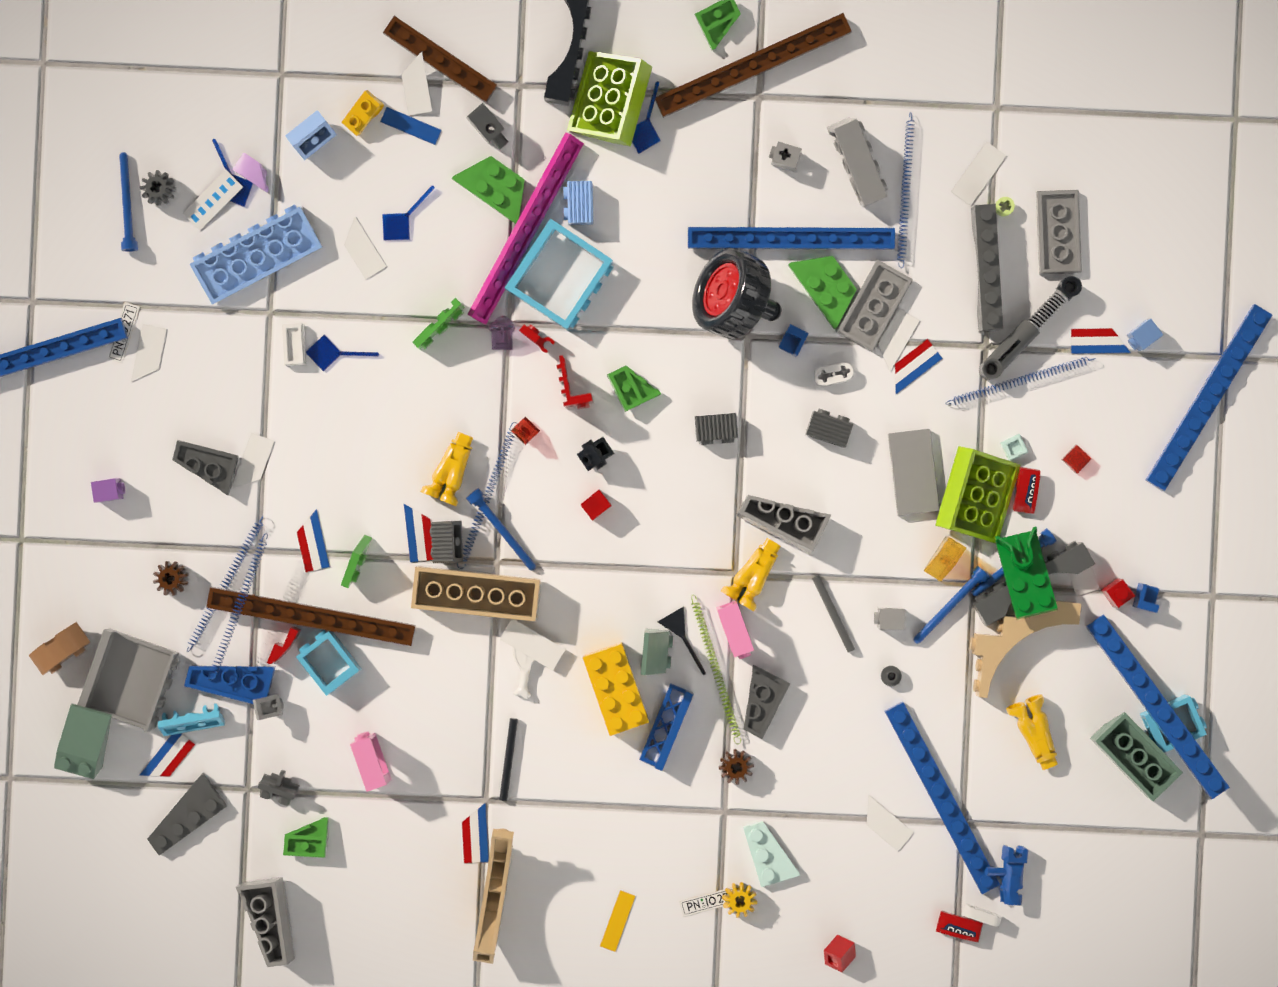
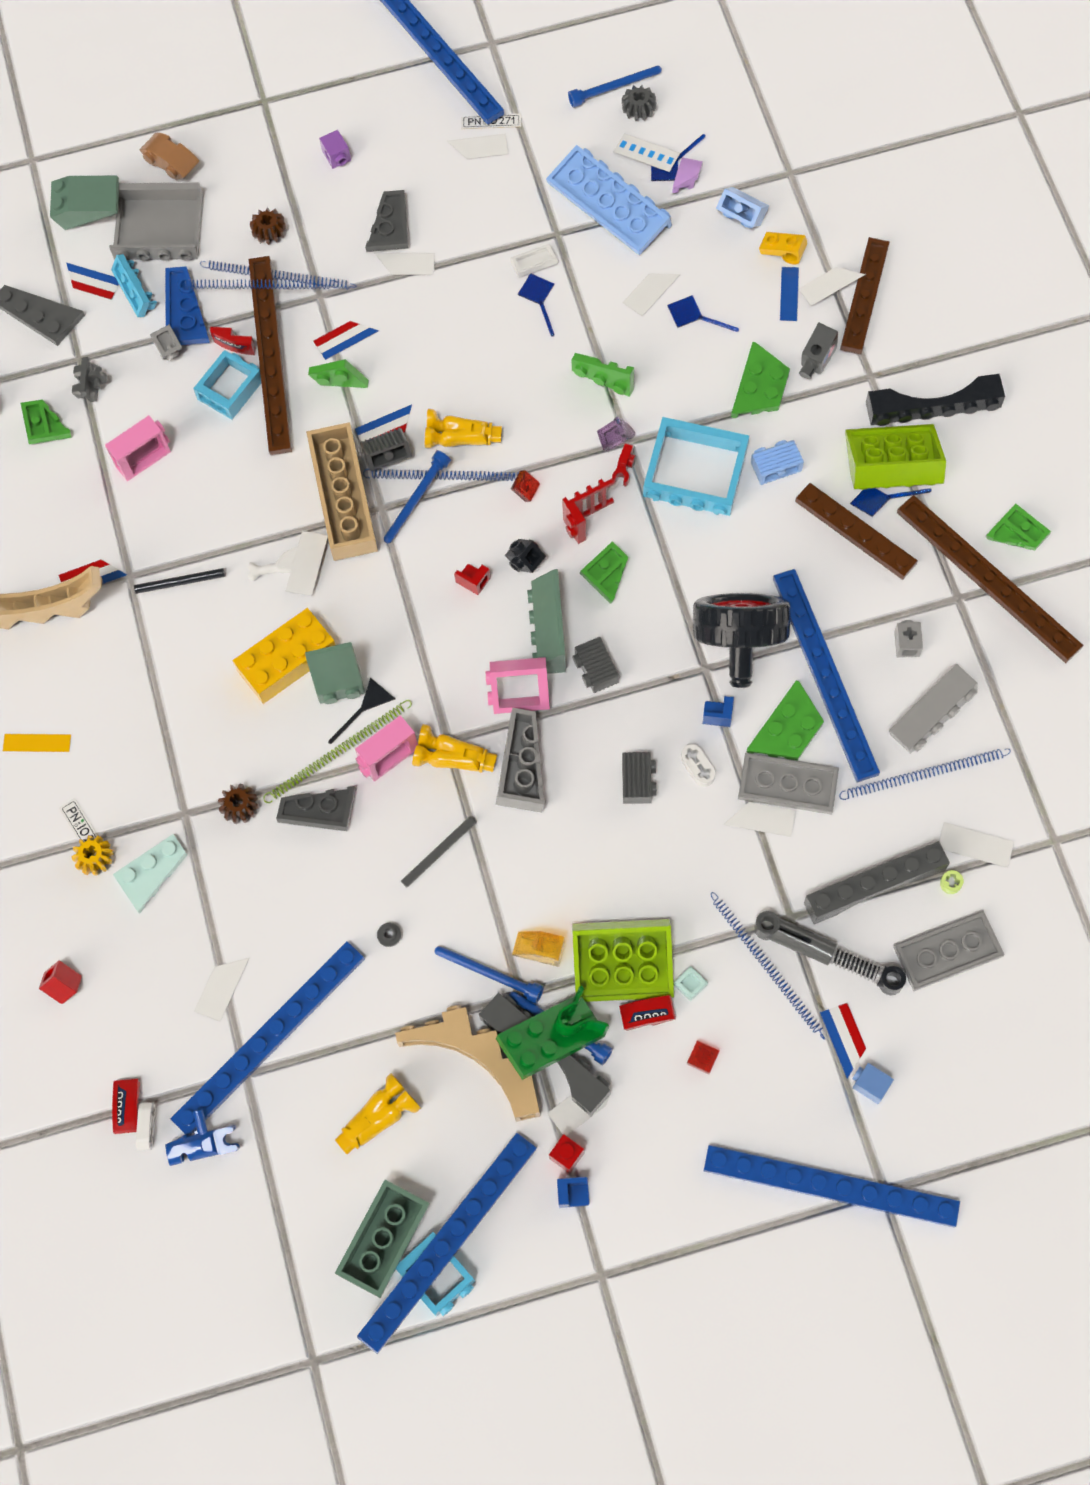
camera: 75 degrees right, 20 degrees down
(525, 228) = (733, 420): dark pink plate -> none
(666, 455) = (548, 621): none -> sand green slope
(667, 159) = (856, 531): none -> reddish brown plate
(674, 728) = (260, 727): blue fence -> none
(707, 497) = (518, 668): none -> bright pink window
(890, 618) = (452, 910): light grey brick -> none
(913, 472) = (623, 883): light grey tile -> none
(915, 364) = (741, 848): sticker -> none

